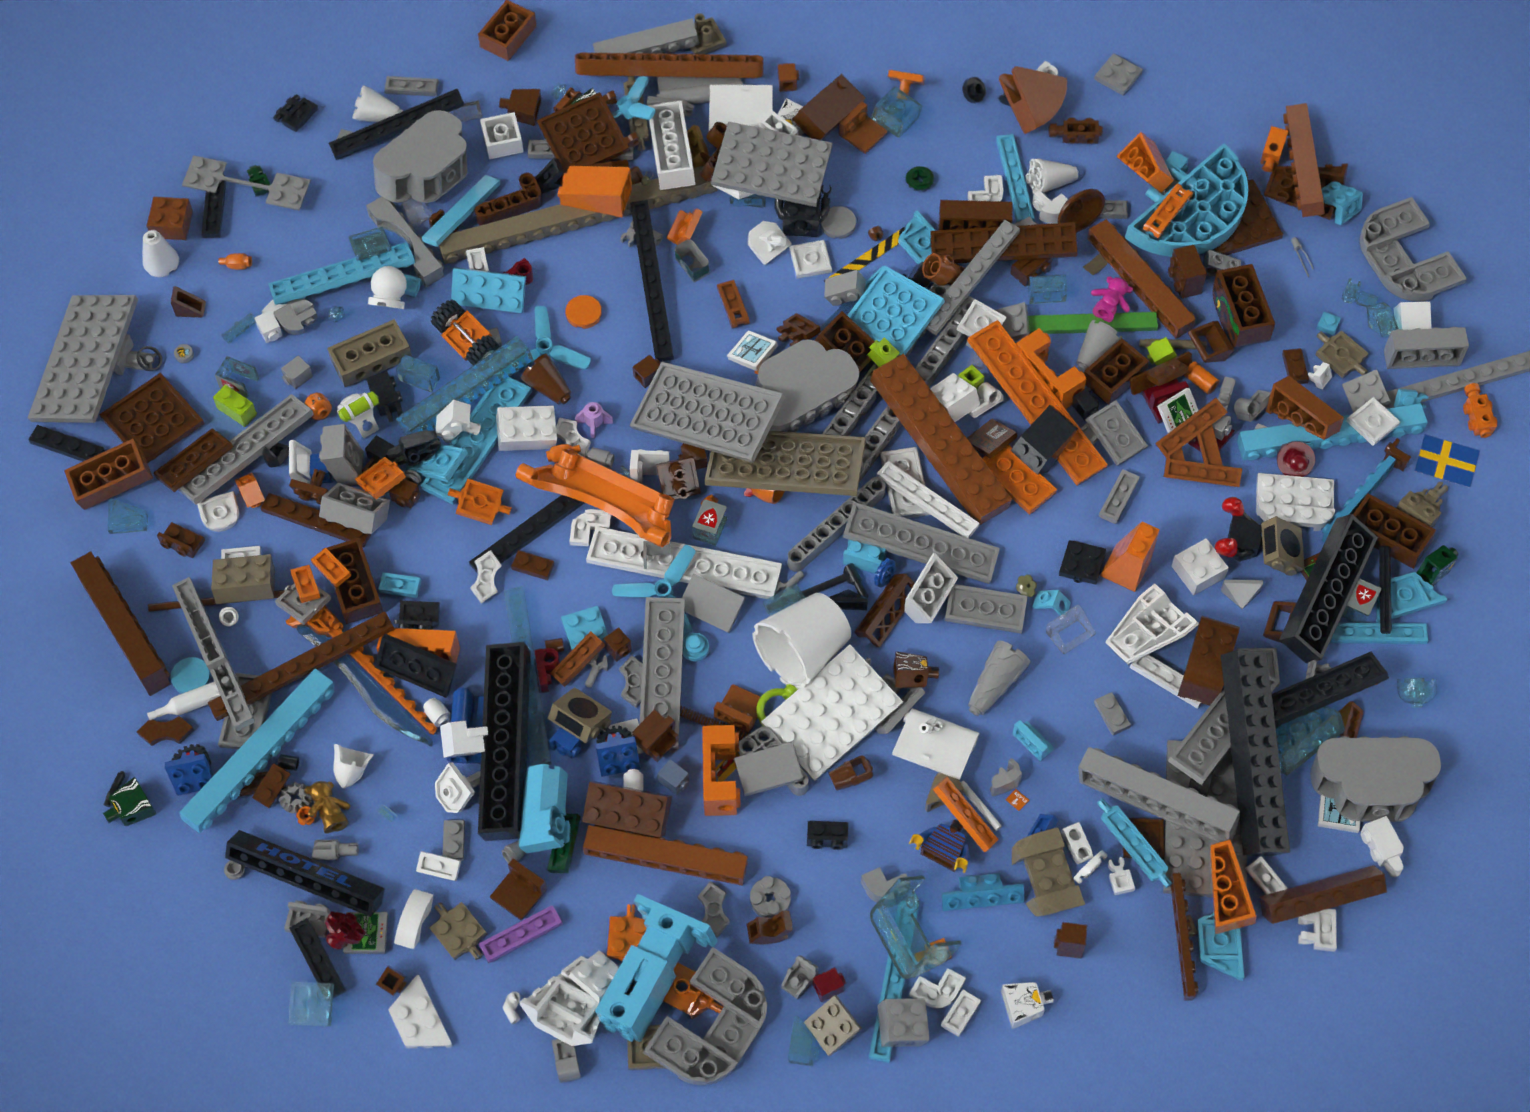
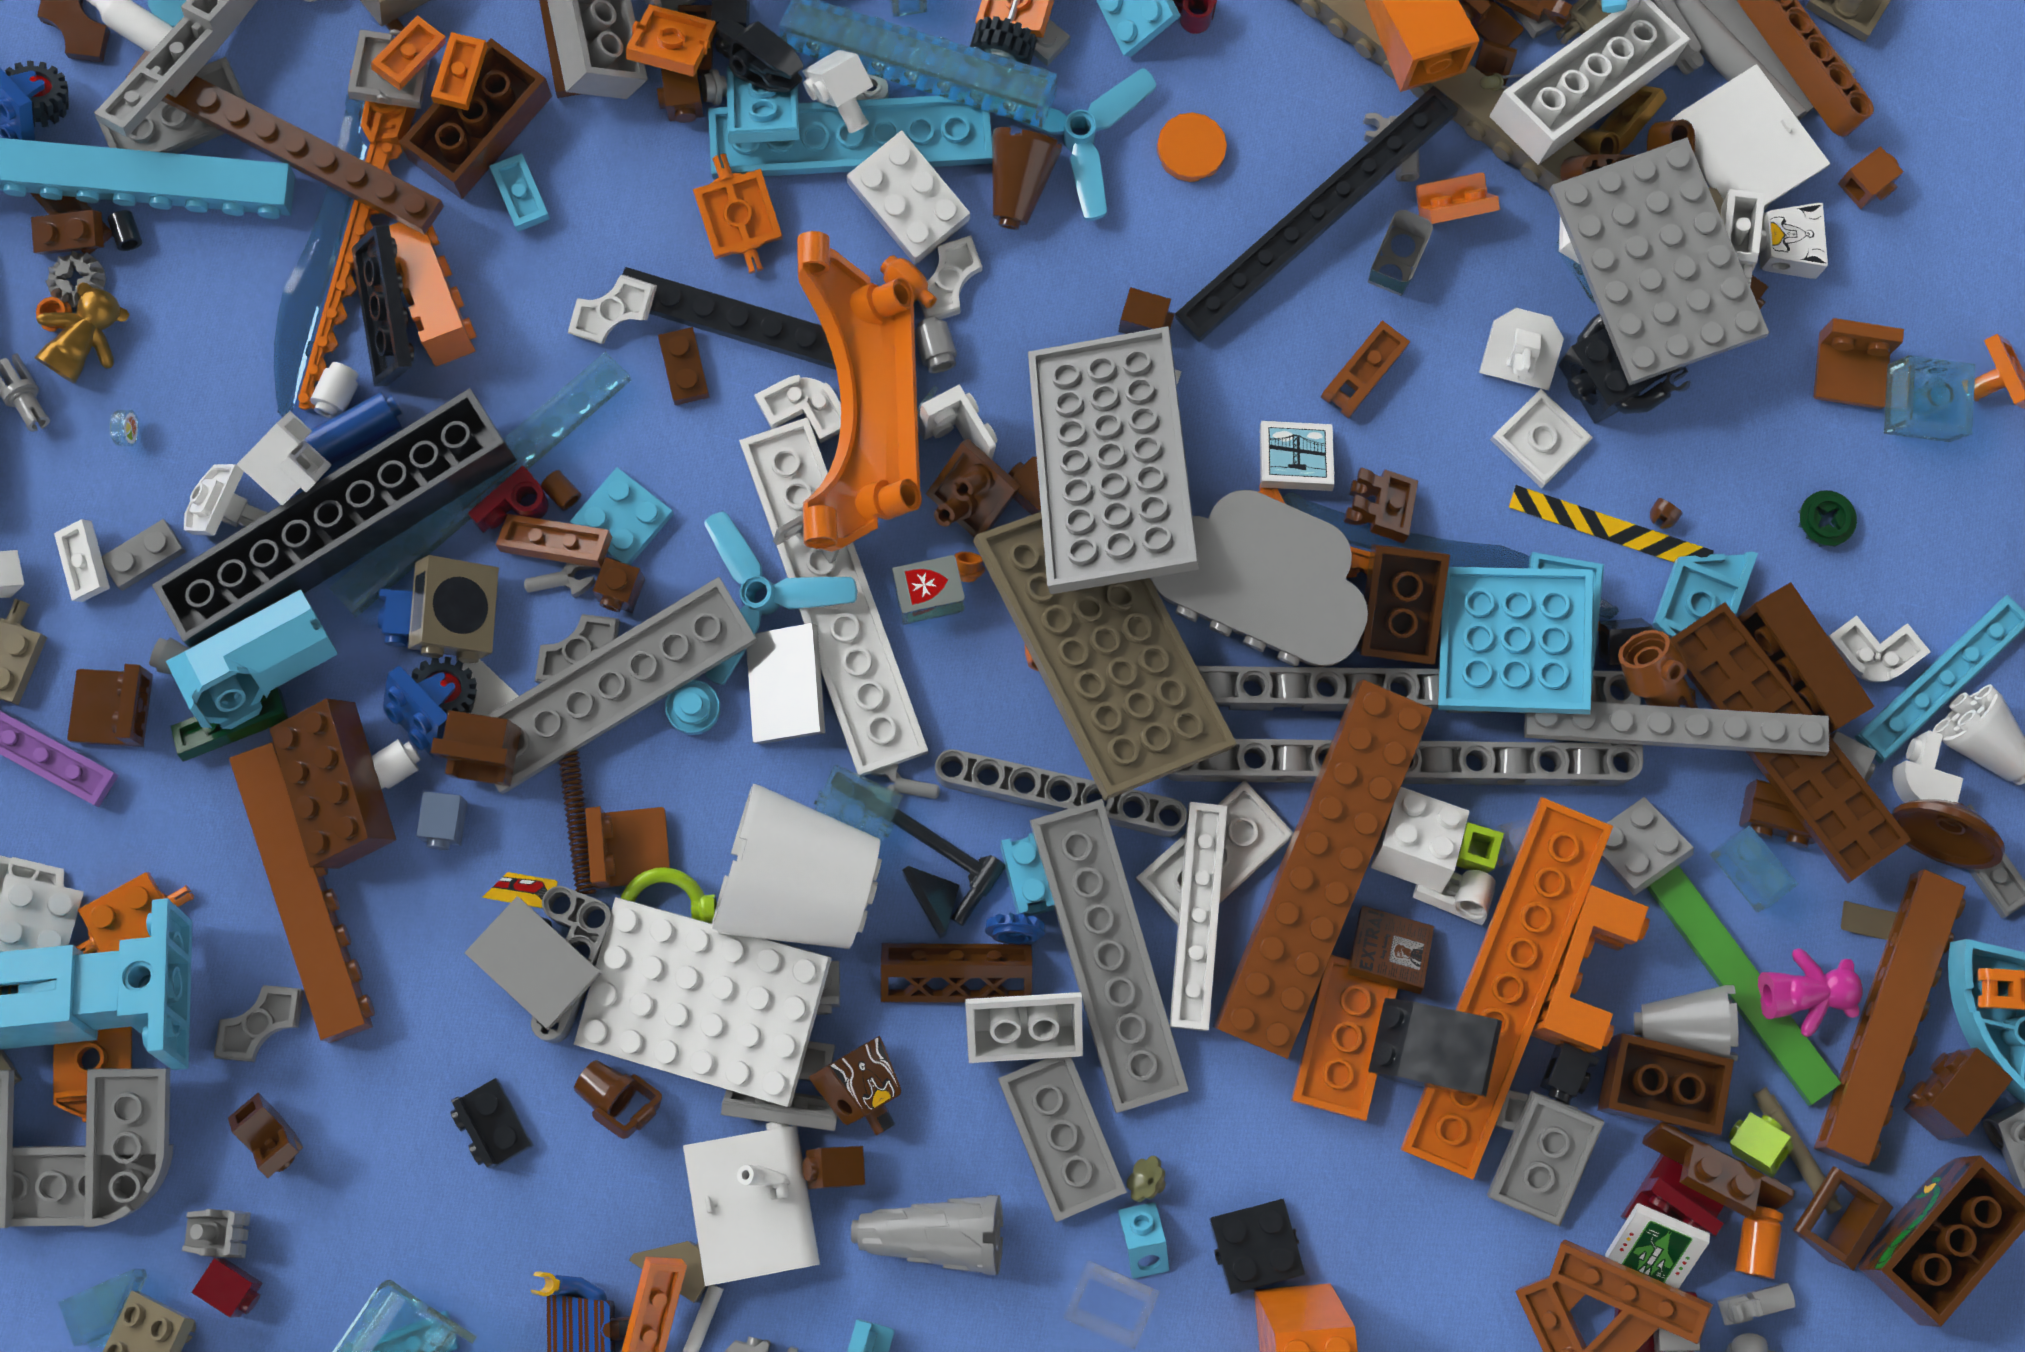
camera: 50 degrees right, 15 degrees up
(349, 765) = (171, 317): white helmet -> none
(418, 613) = (475, 255): black bracket -> none
(593, 416) = (1004, 287): lavender brick -> none
(719, 797) = (434, 903): orange plate -> none
(770, 886) = (343, 1117): light grey plate -> none
(828, 108) = (1849, 283): reddish brown brick -> none
(839, 222) = (1645, 440): light grey tile -> none
(844, 287) = (1514, 530): light grey brick -> none
(876, 883) = (441, 1270): light grey brick -> none
(882, 352) = (1420, 672): lime brick -> none
(941, 702) = (834, 1167): none -> reddish brown brick
(977, 318) = (1602, 792): white bracket -> none
(1119, 496) = (1424, 1235): light grey plate -> none

